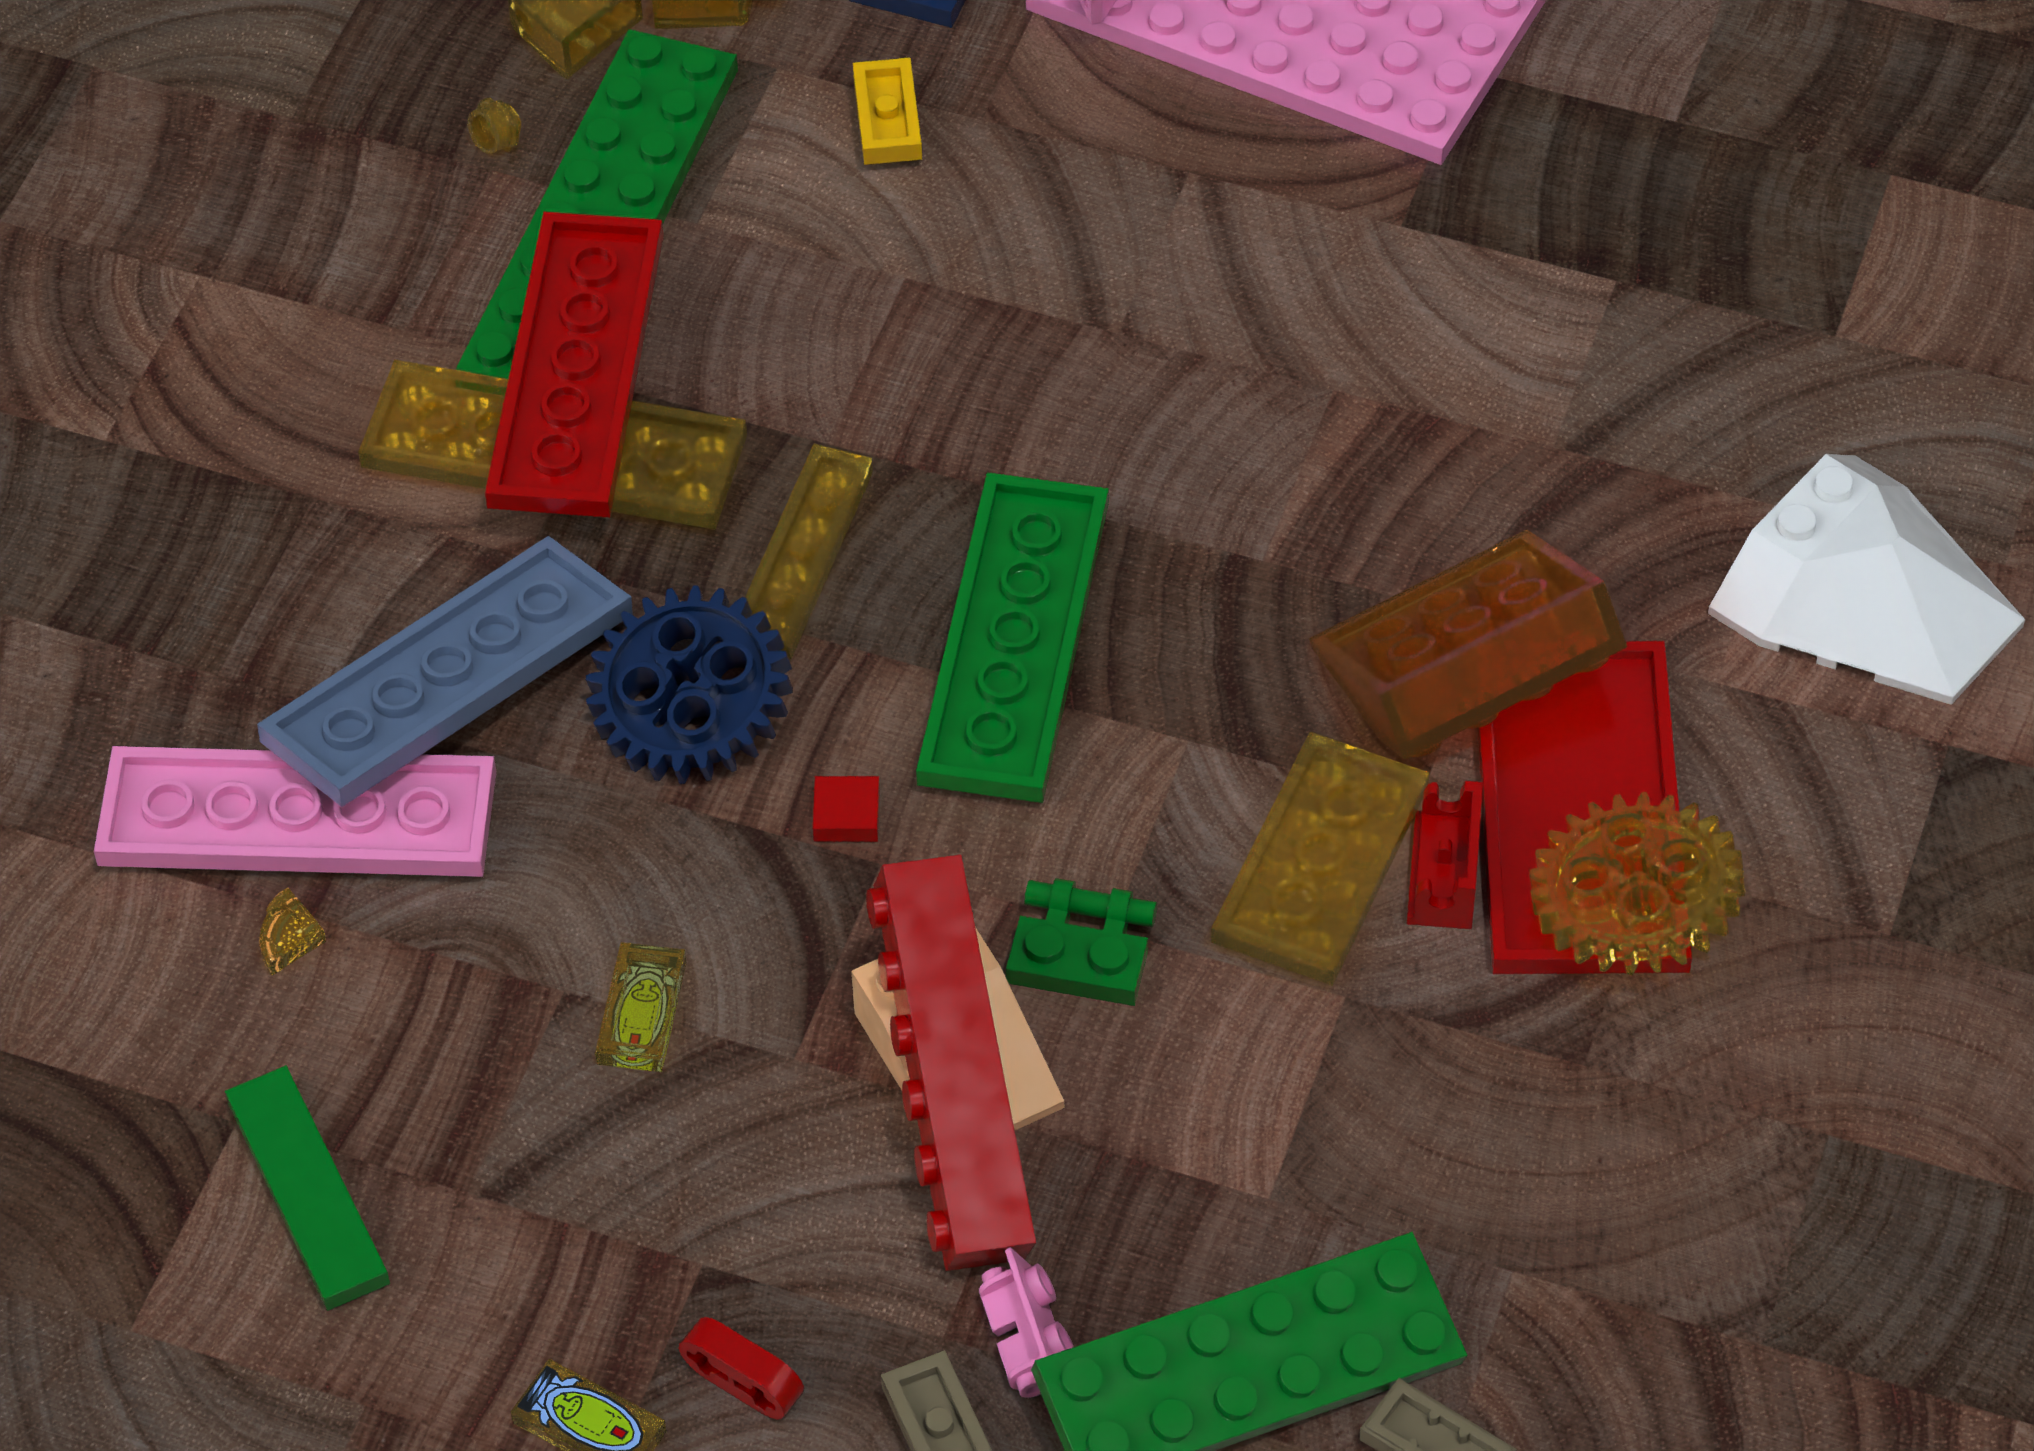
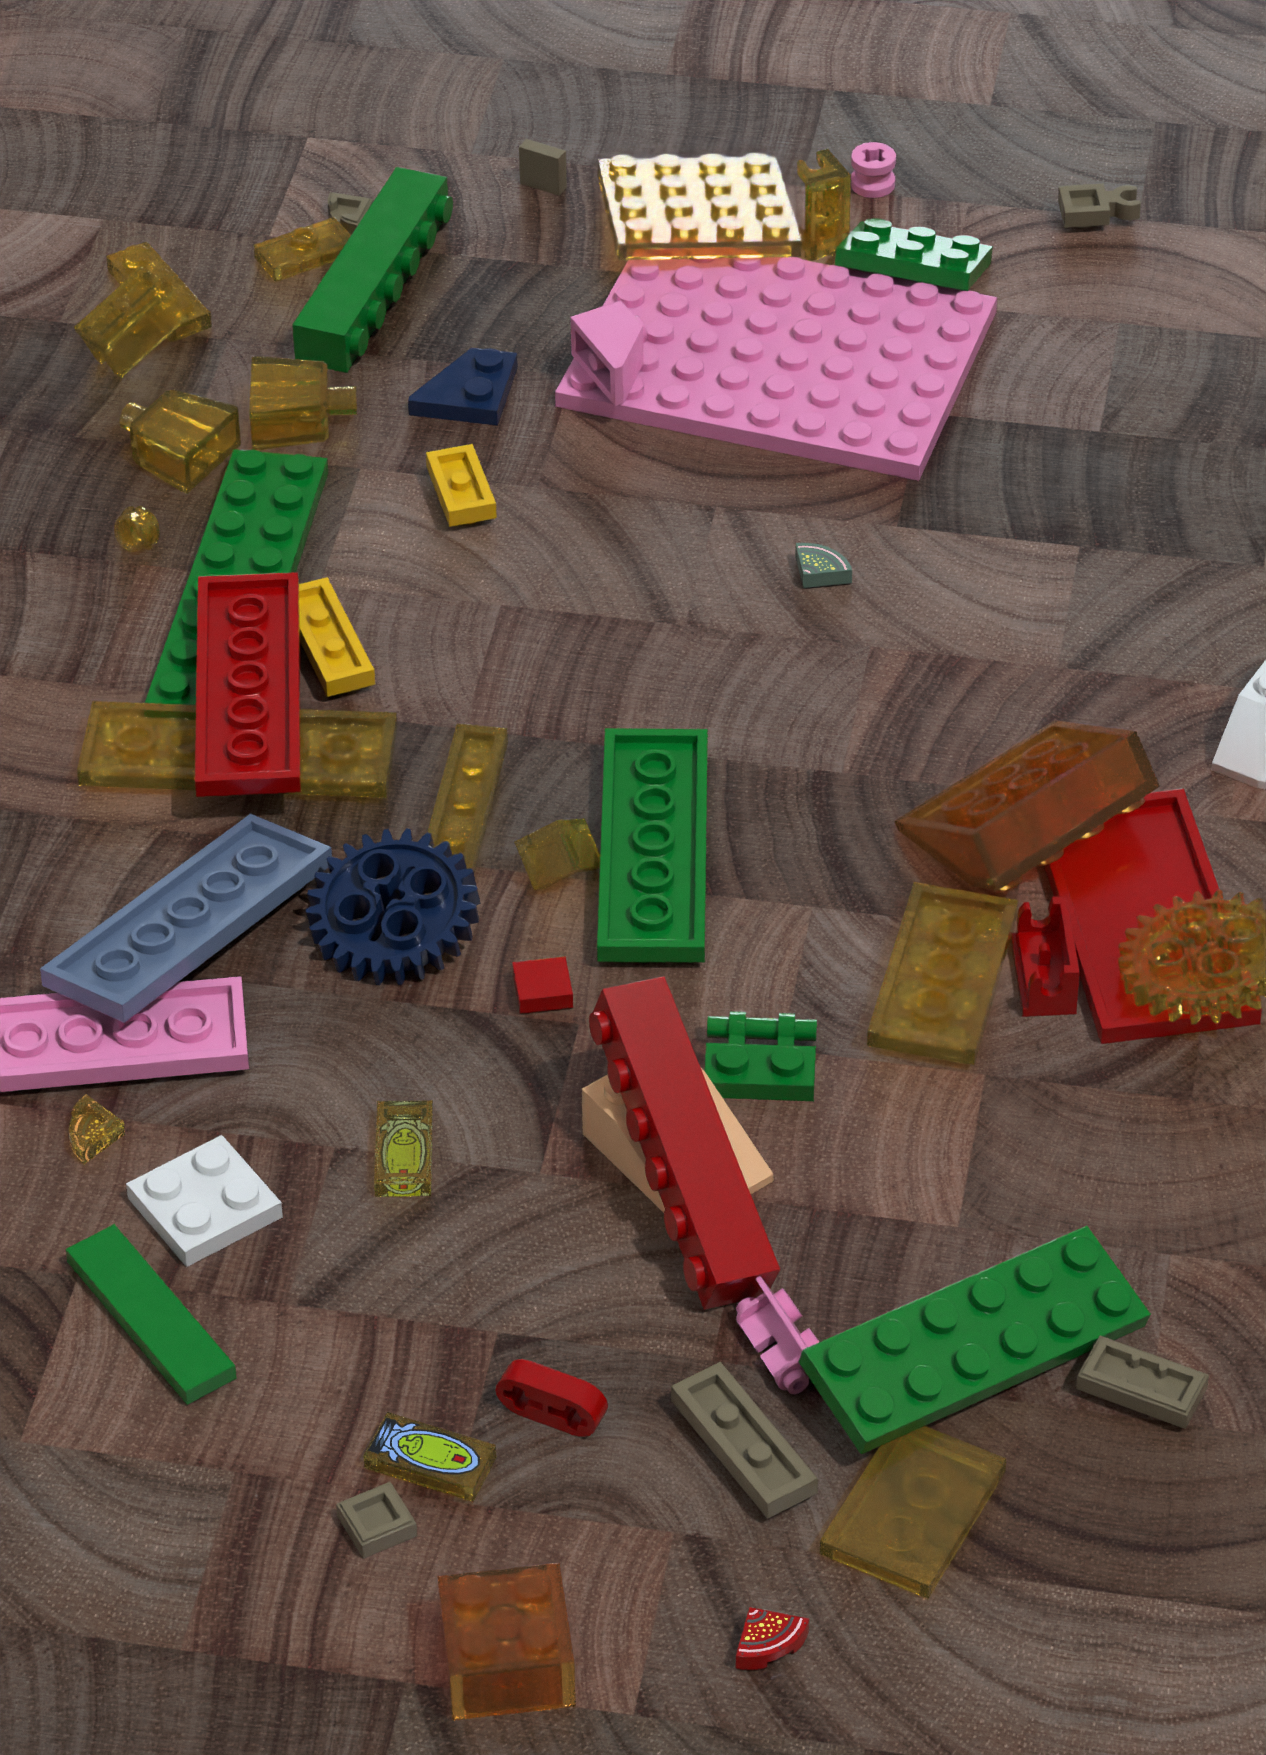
camera: 10 degrees left, 10 degrees down
(397, 1045) = (204, 1200): none -> white plate
(690, 306) = (331, 640): none -> yellow plate
(898, 635) = (558, 852): none -> clear yellow panel
(1296, 273) = (821, 566): none -> sand green tile

